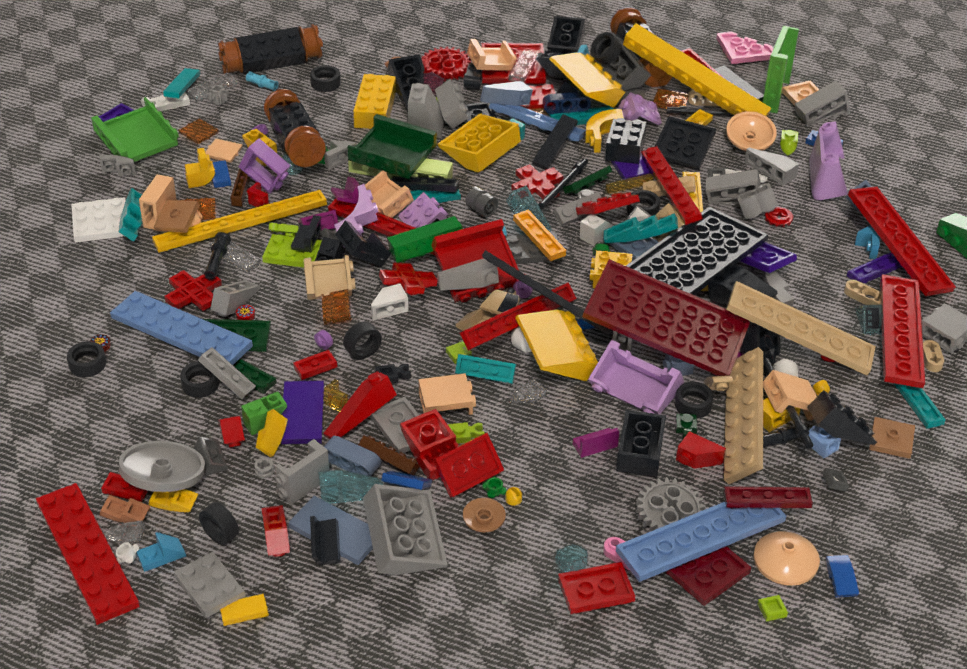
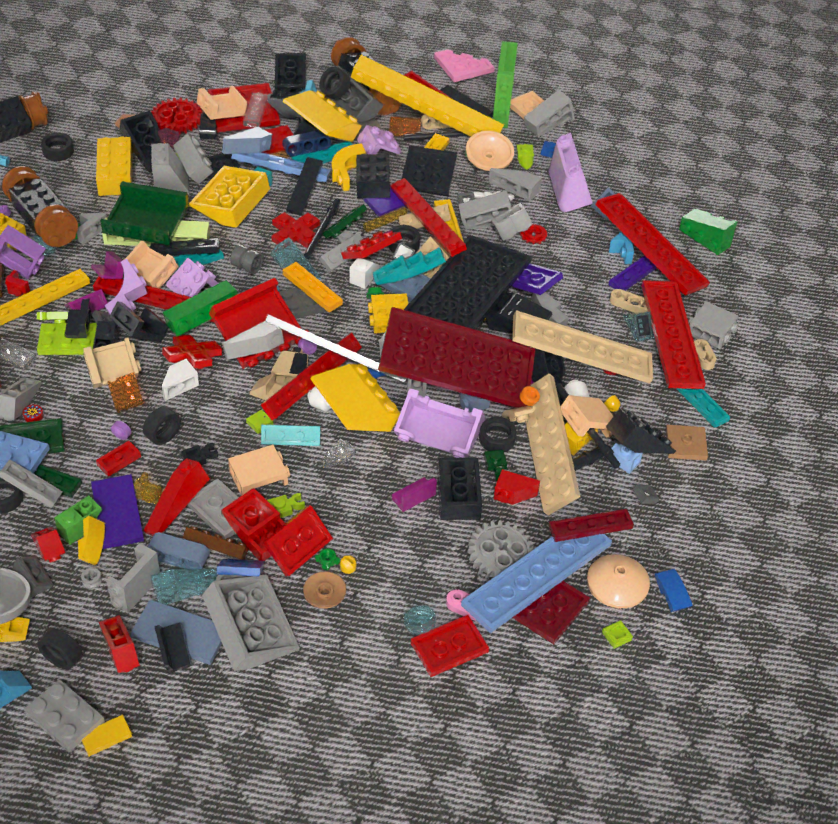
camera: 15 degrees left, 5 degrees up
(733, 365) = (529, 396): none -> orange tile

